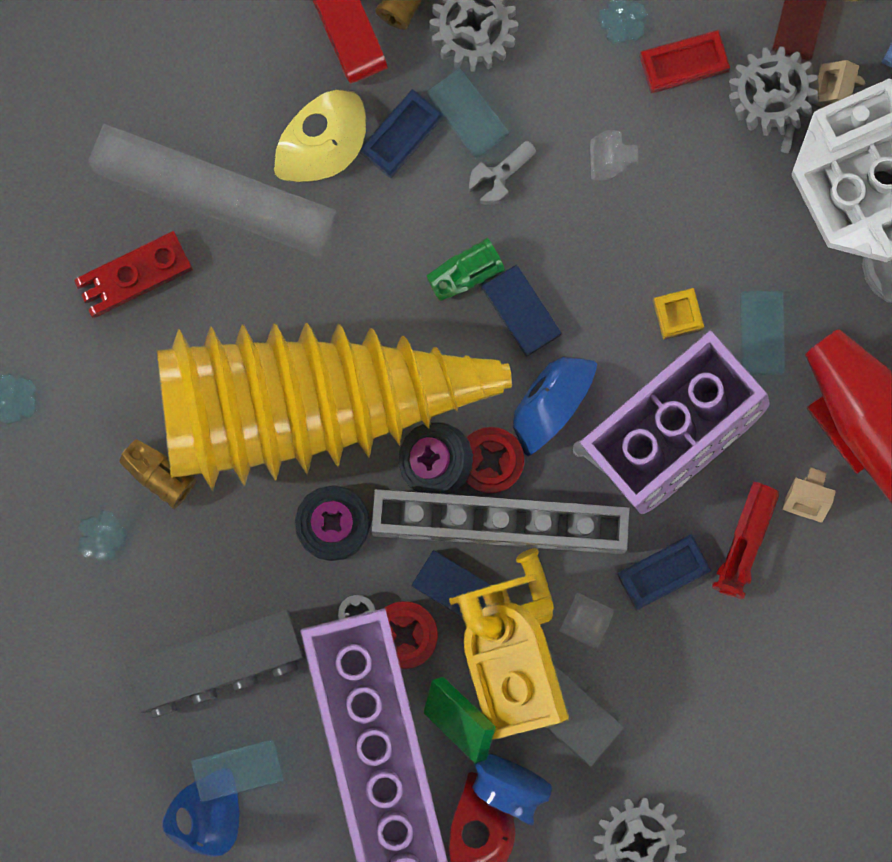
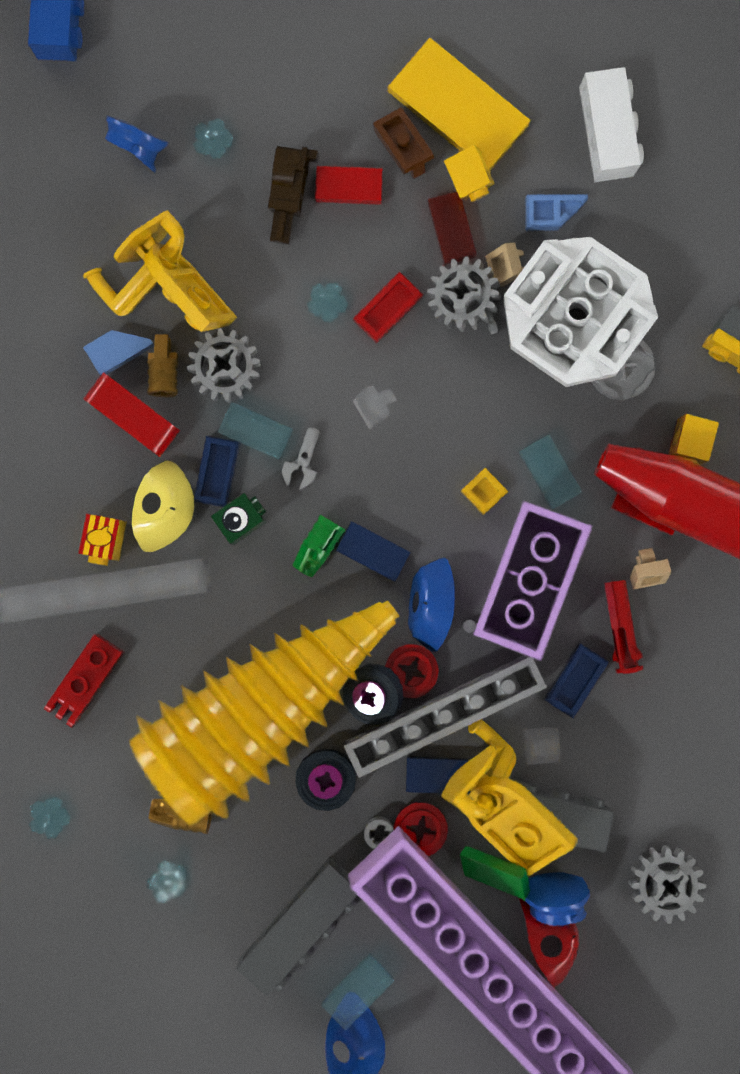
camera: 30 degrees left, 5 degrees up
(240, 135) = (102, 539): none -> brick
(399, 194) = (239, 518): none -> dark green brick

